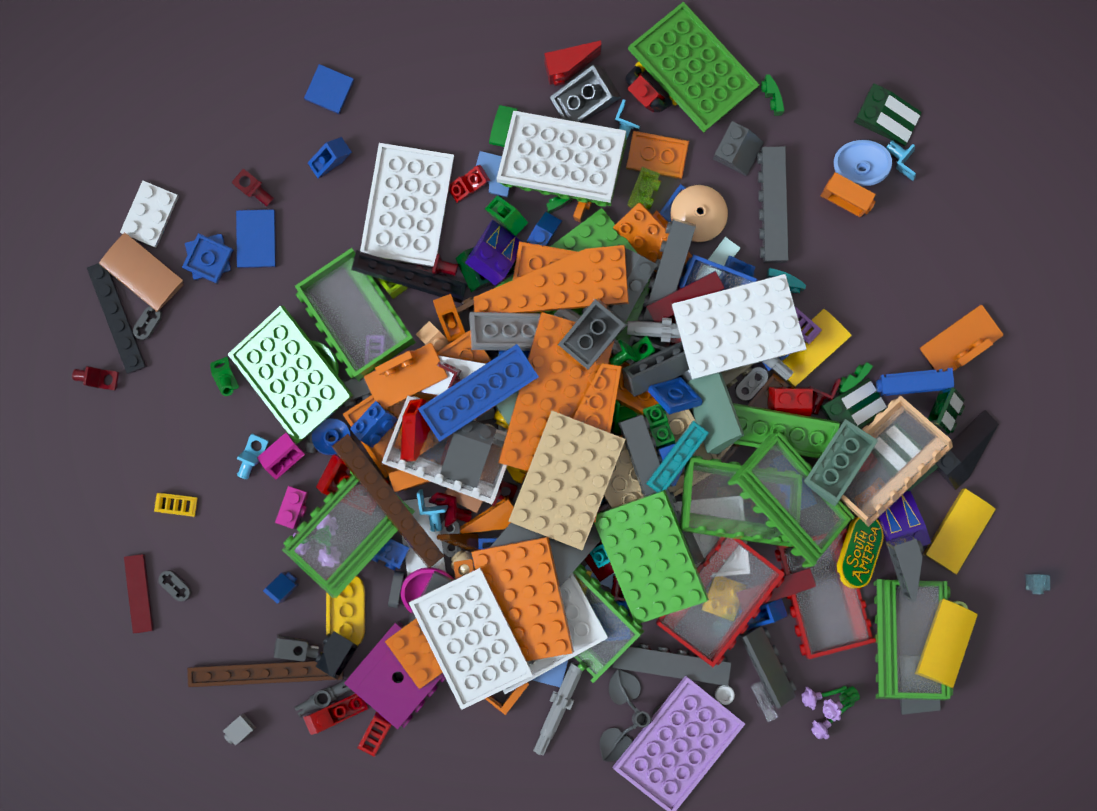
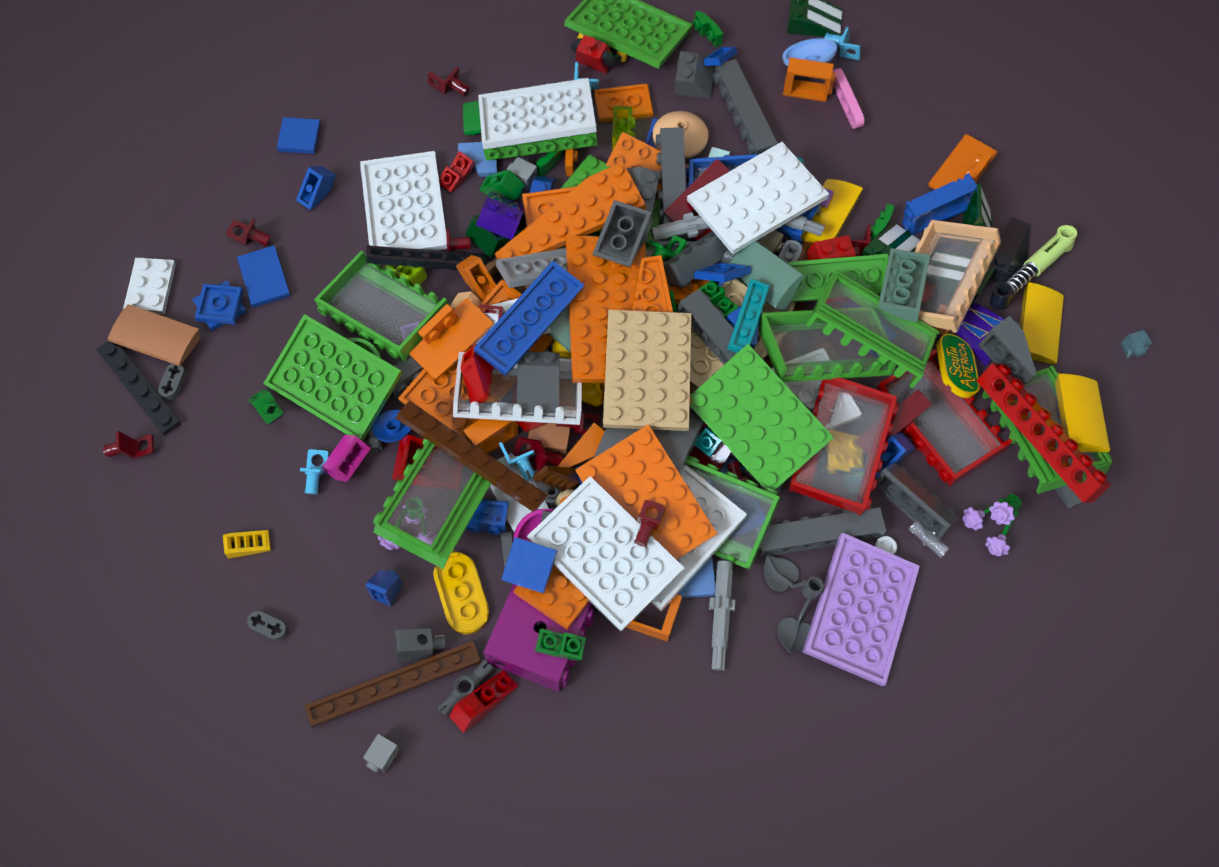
camera: 25 degrees left, 20 degrees down
(138, 593) = (229, 647): dark red tile -> none
(292, 507) = (371, 502): dark pink brick -> none
(336, 654) = (467, 629): black slope -> none
(373, 424) = (434, 393): blue bracket -> none
(378, 722) = (533, 729): red slope -> none
(403, 628) = (529, 565): none -> blue tile
(408, 700) = (560, 645): none -> green slope
(496, 77) = (451, 82): none -> dark red bracket
(514, 627) = (648, 524): none -> dark red bracket
(530, 207) = (524, 171): none -> light grey brick
(567, 62) = (516, 47): red slope -> none
(585, 95) = (541, 68): dark grey slope -> none
(772, 136) = (720, 56): none -> blue tile
(880, 224) = (848, 99): none -> bright pink beam
(899, 652) = (1096, 480): none -> red brick
(979, 474) = (1061, 242): none -> piece

